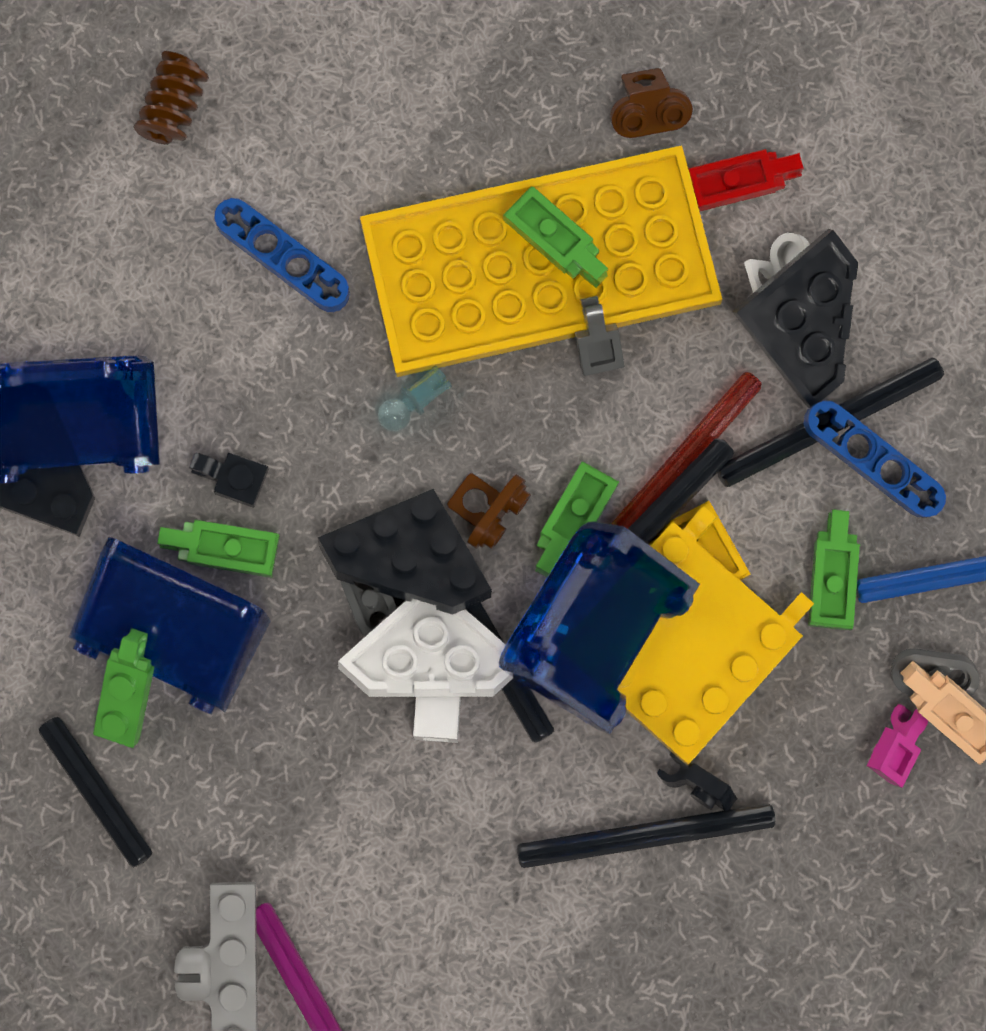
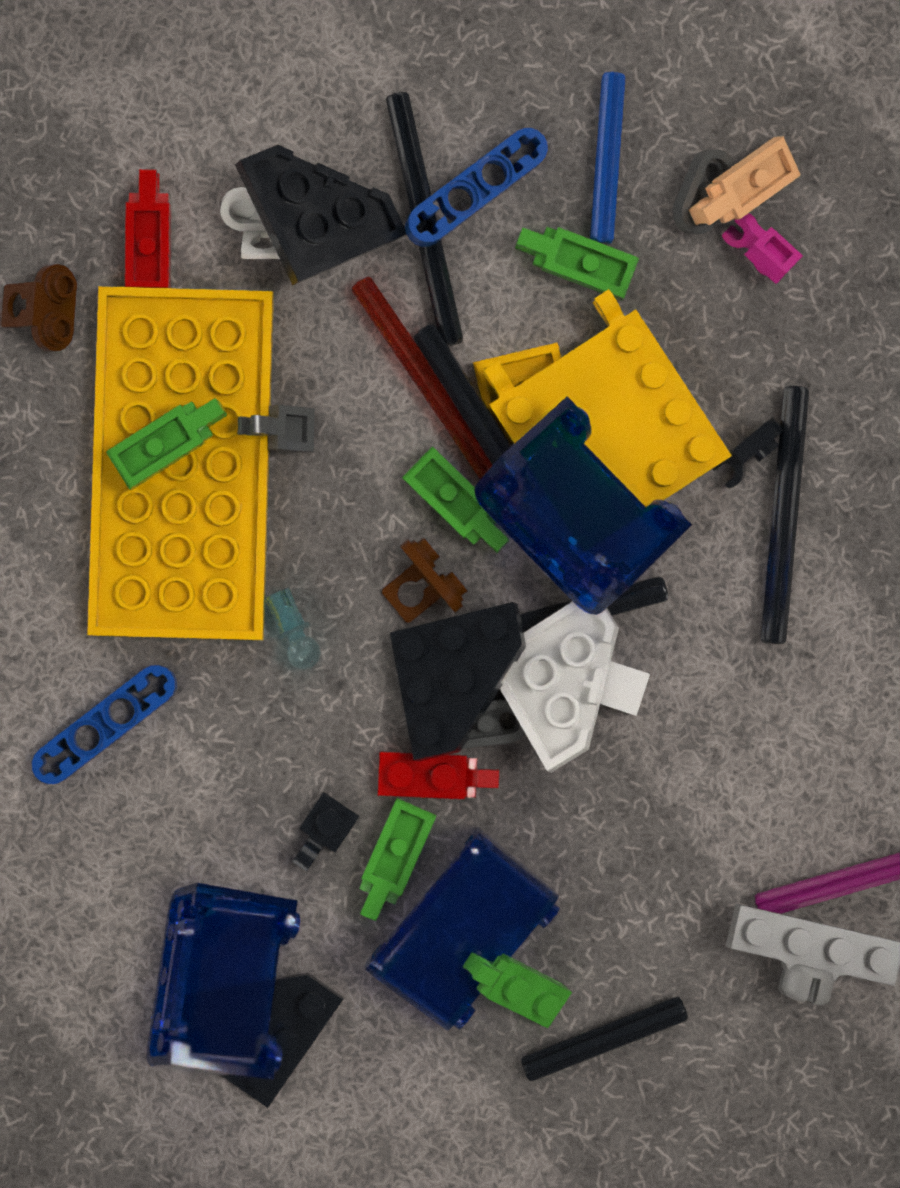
camera: 75 degrees left, 10 degrees up
(307, 568) = (437, 777): none -> red hinge

